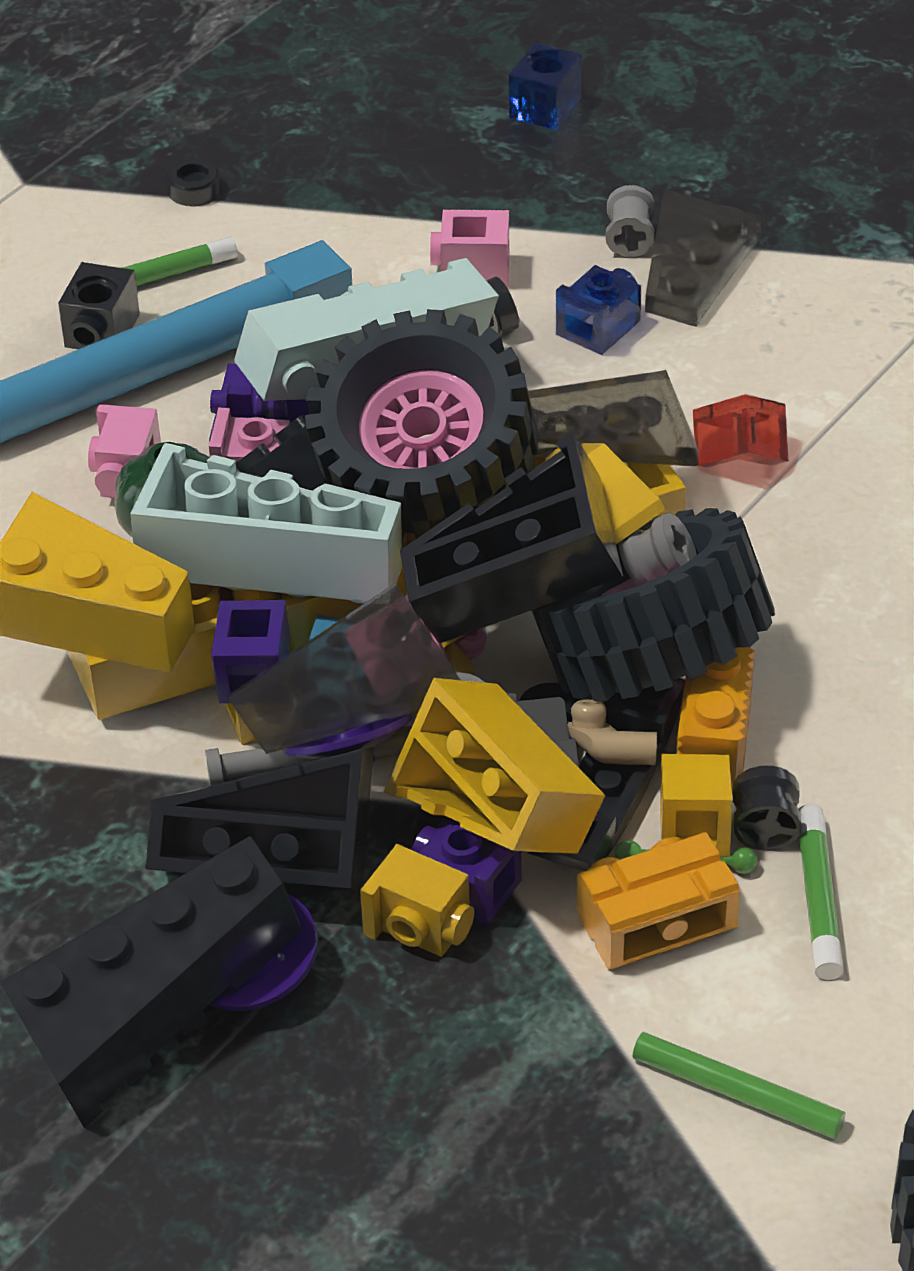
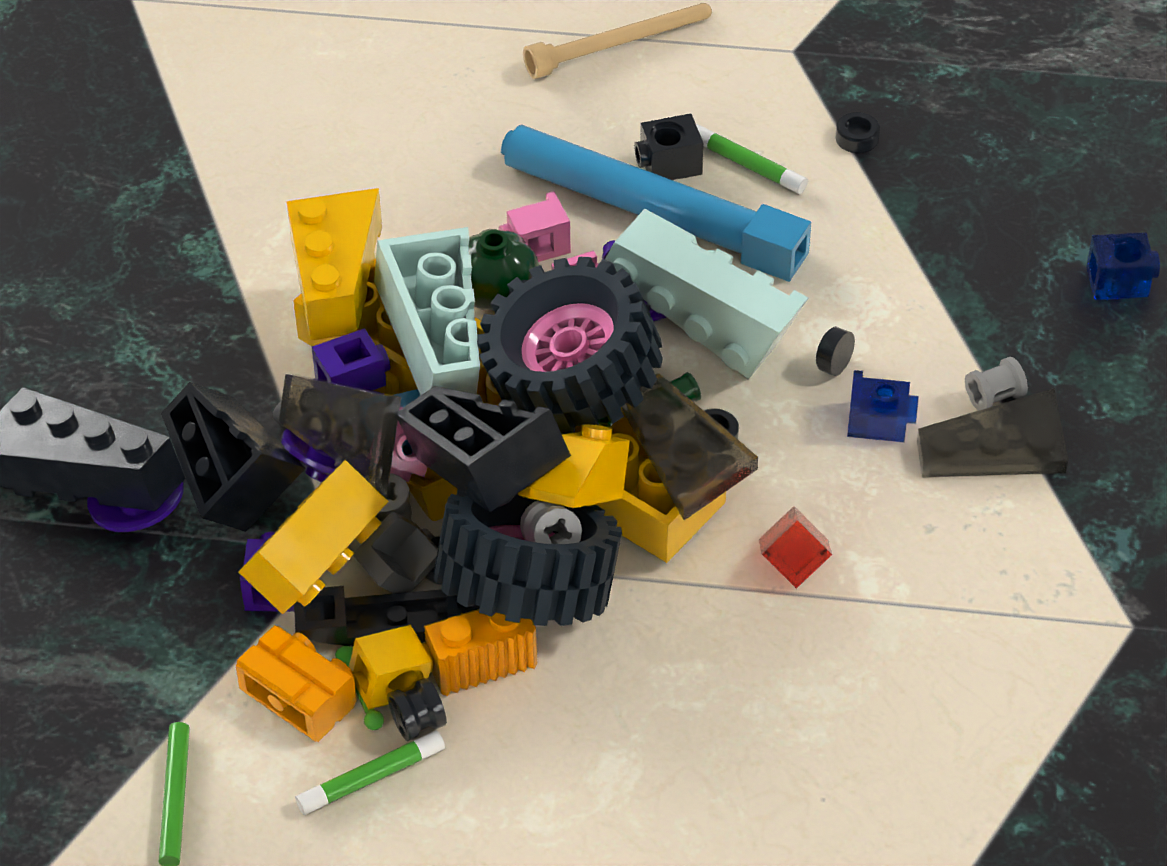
camera: 60 degrees right, 5 degrees up
(417, 902) = (220, 558): yellow brick -> none
(474, 235) = (890, 310): bright pink brick -> none
(606, 743) = (418, 594): tan arm -> none

